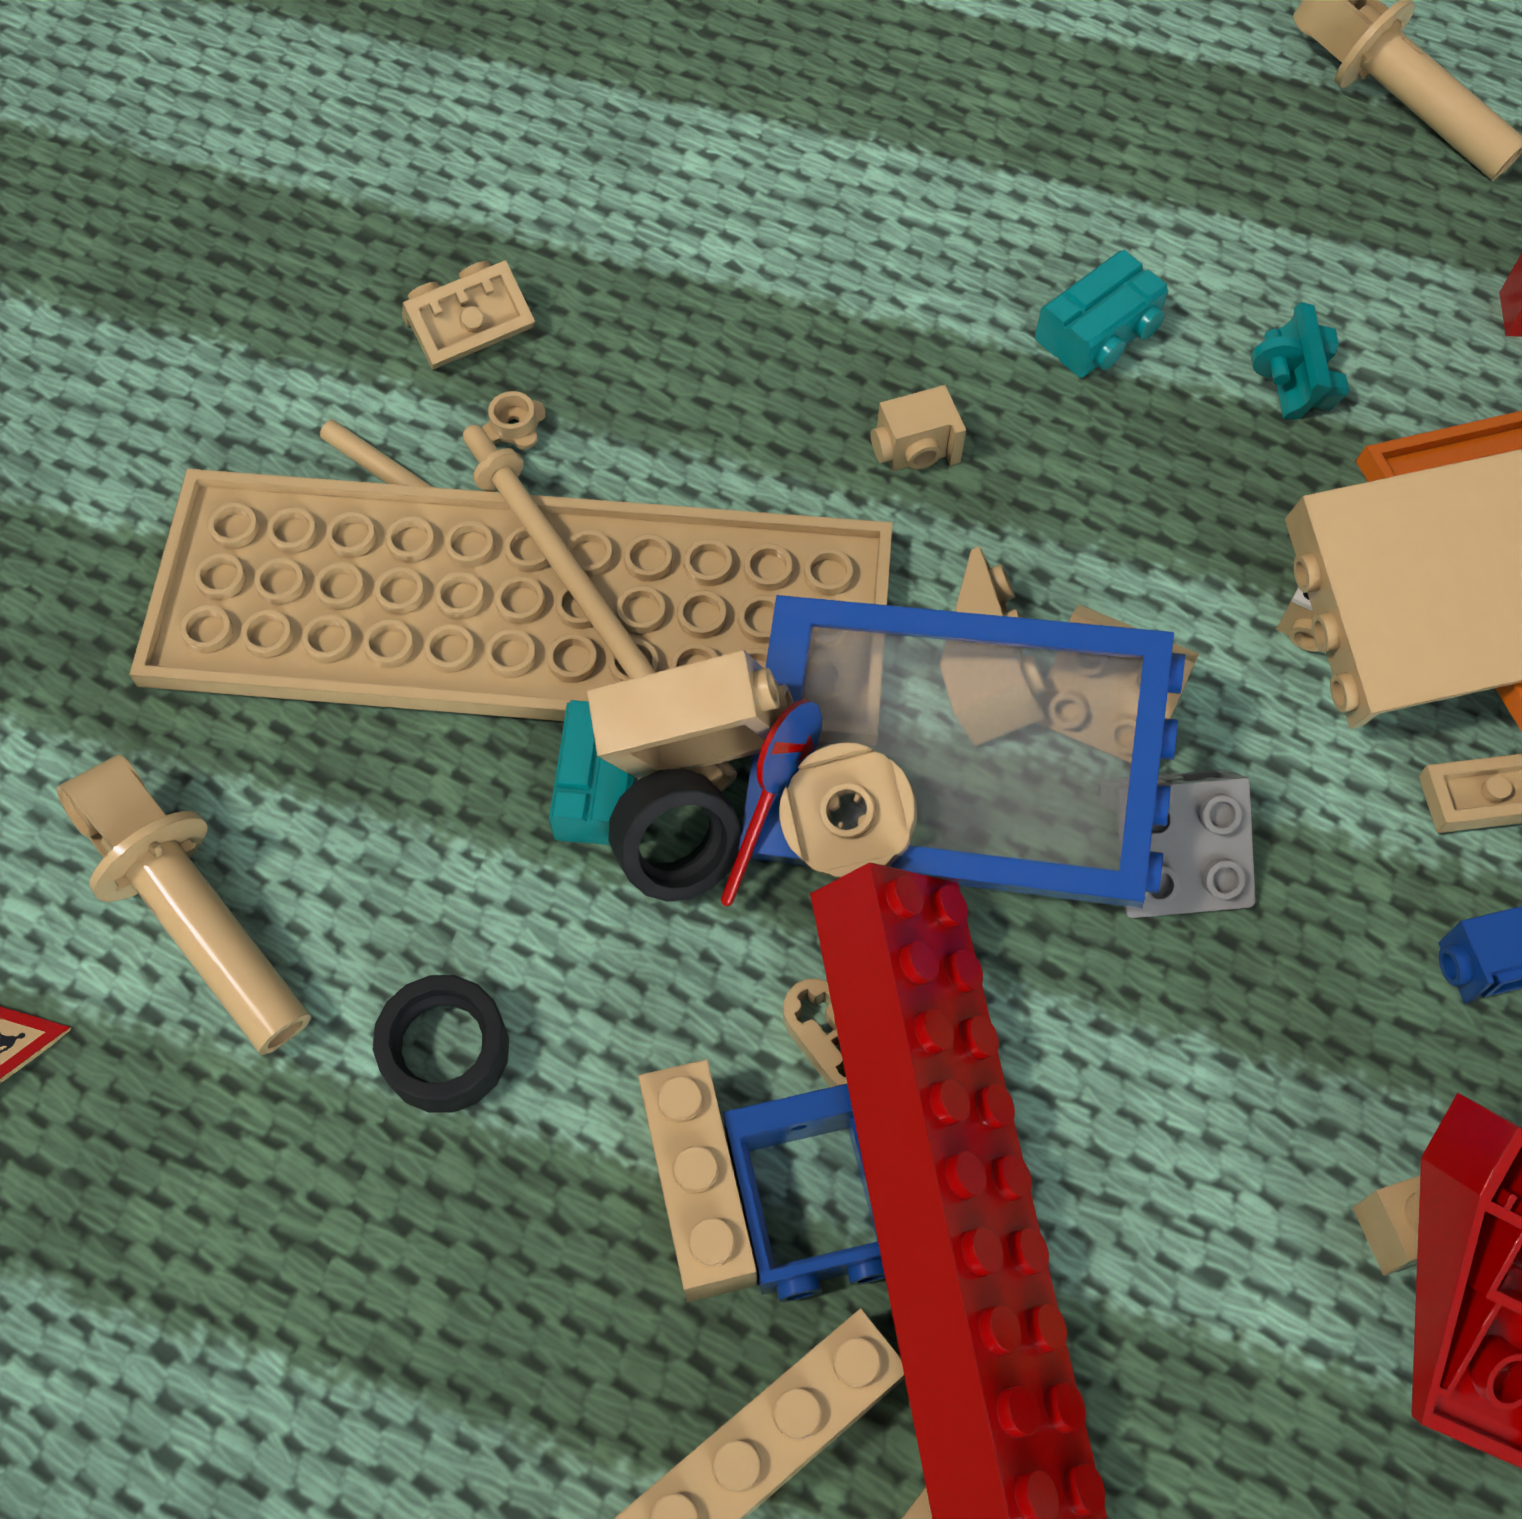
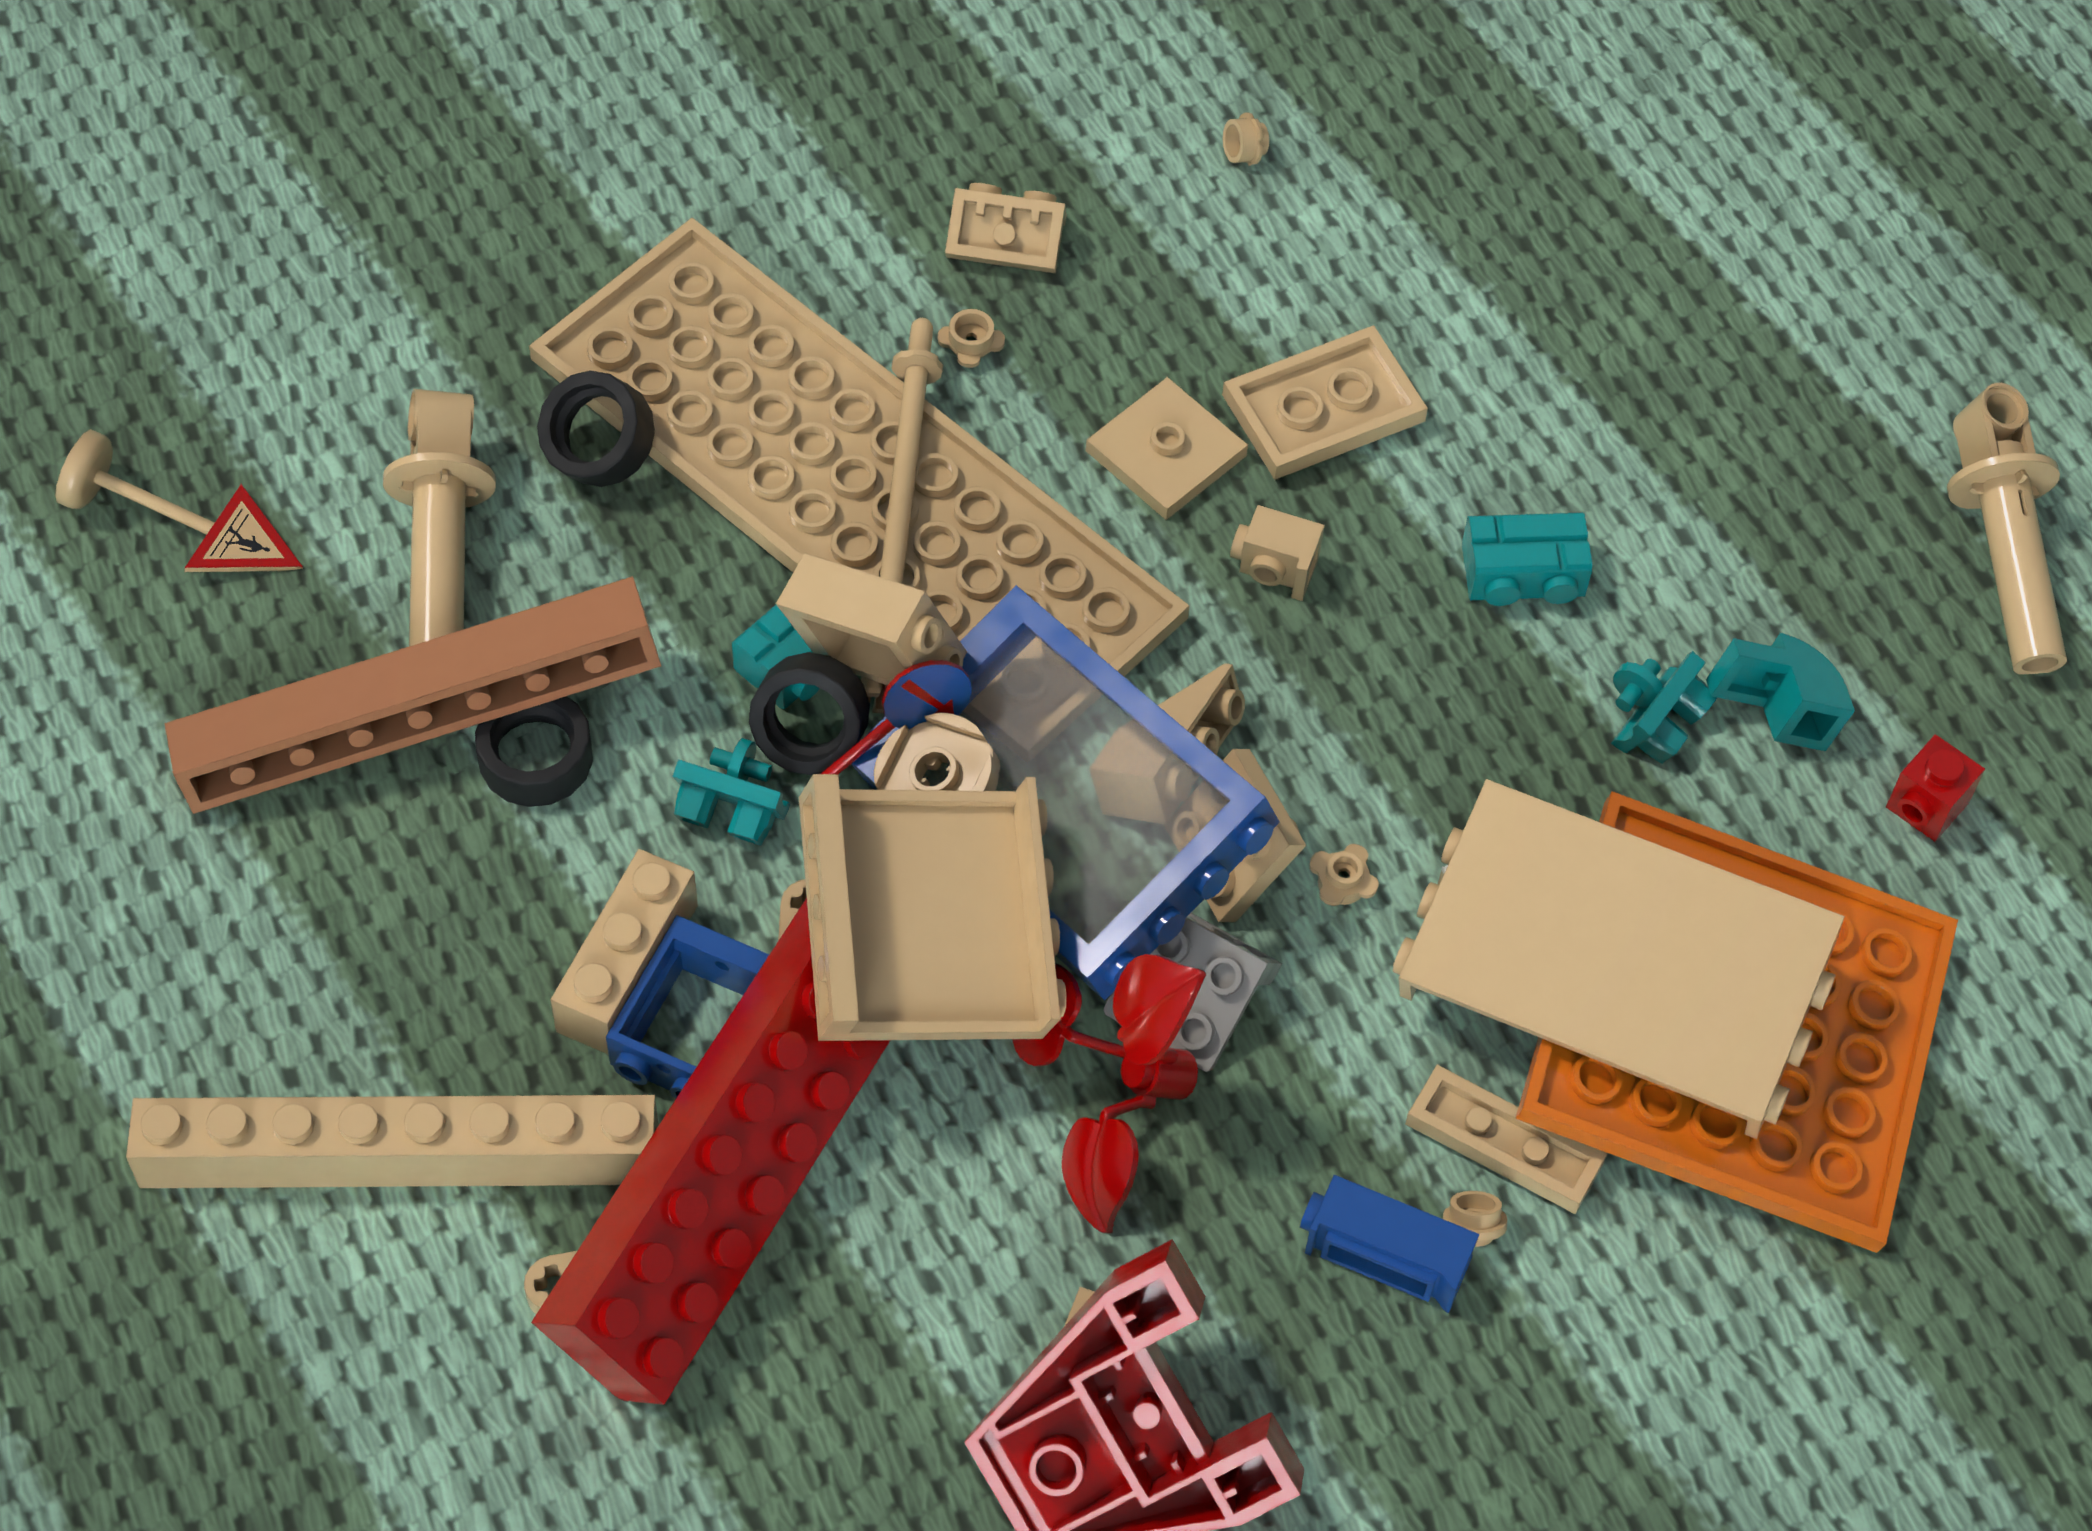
camera: 35 degrees right, 5 degrees down
(209, 709) = (562, 407): none -> black tyre
(285, 1094) = (411, 695): none -> nougat brick
(368, 456) = (839, 296): tan piece -> none
(594, 131) = (1245, 139): none -> tan plate
(690, 952) = (755, 804): none -> teal hips
(749, 409) = (1166, 448): none -> tan plate
(840, 294) = (1324, 402): none -> tan plate
(978, 947) = (929, 913): none -> tan panel
(1210, 677) = (1339, 890): none -> tan plate
(1259, 898) = (1151, 1008): none -> red plant
(1384, 286) = (1793, 684): none -> teal brick

